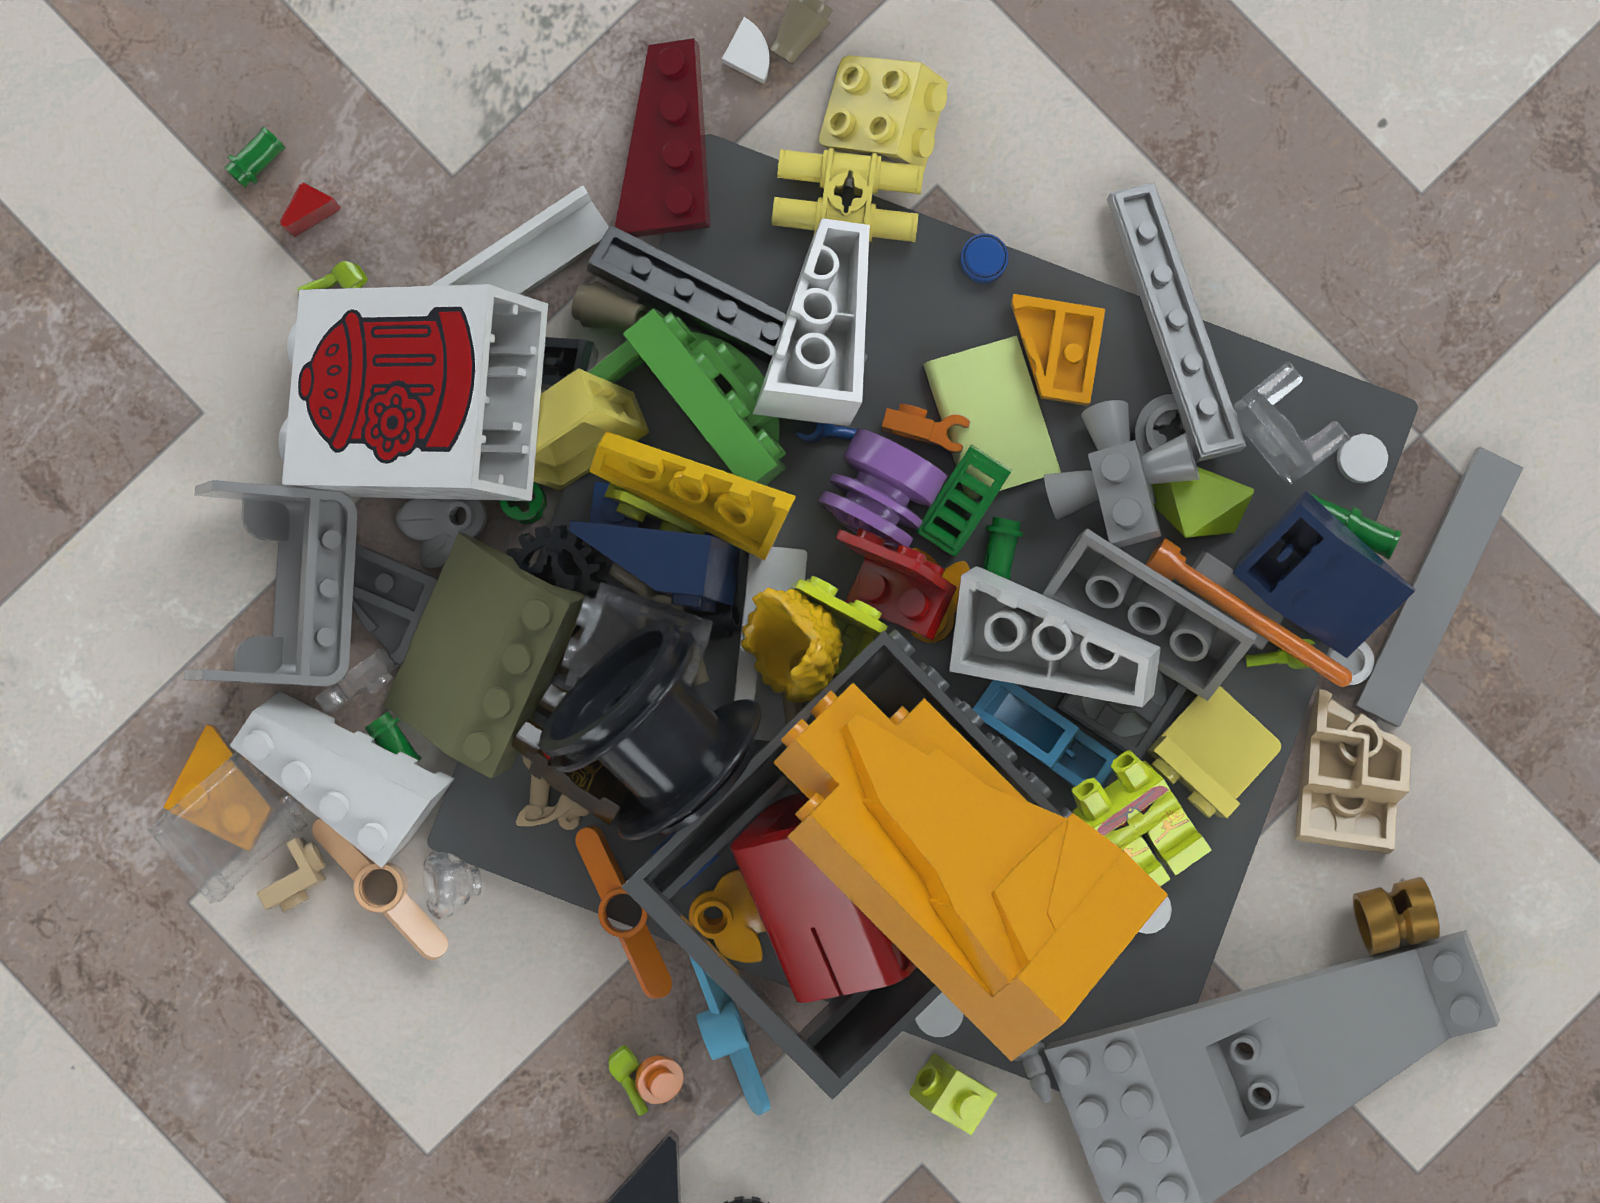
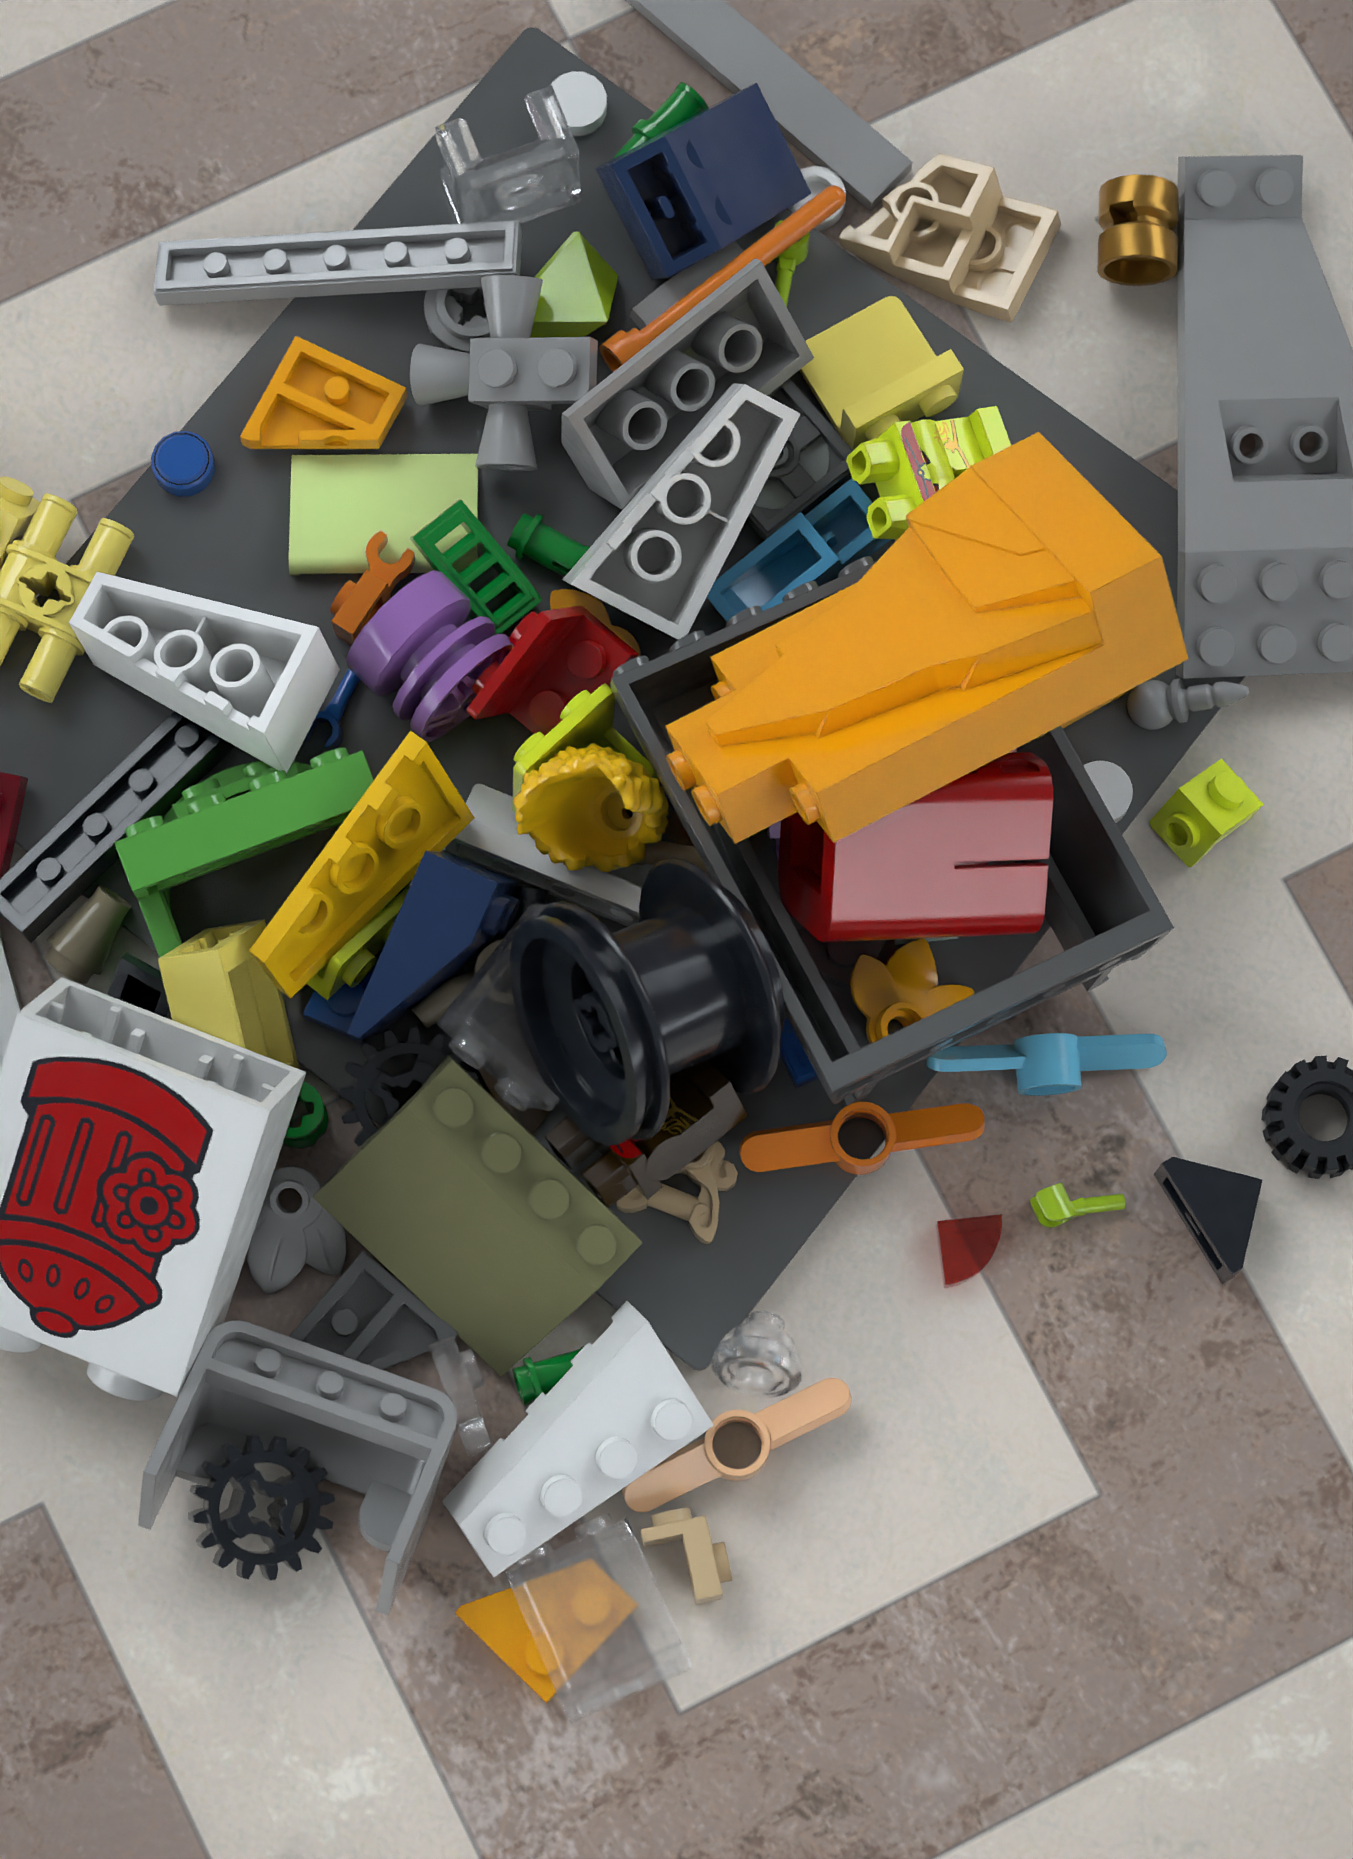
camera: 75 degrees left, 10 degrees down
(221, 557) = (287, 1493): none -> black gear
(575, 1009) = (966, 1246): none -> clear red tile
(658, 1079) = (1085, 1164): orange plate -> none

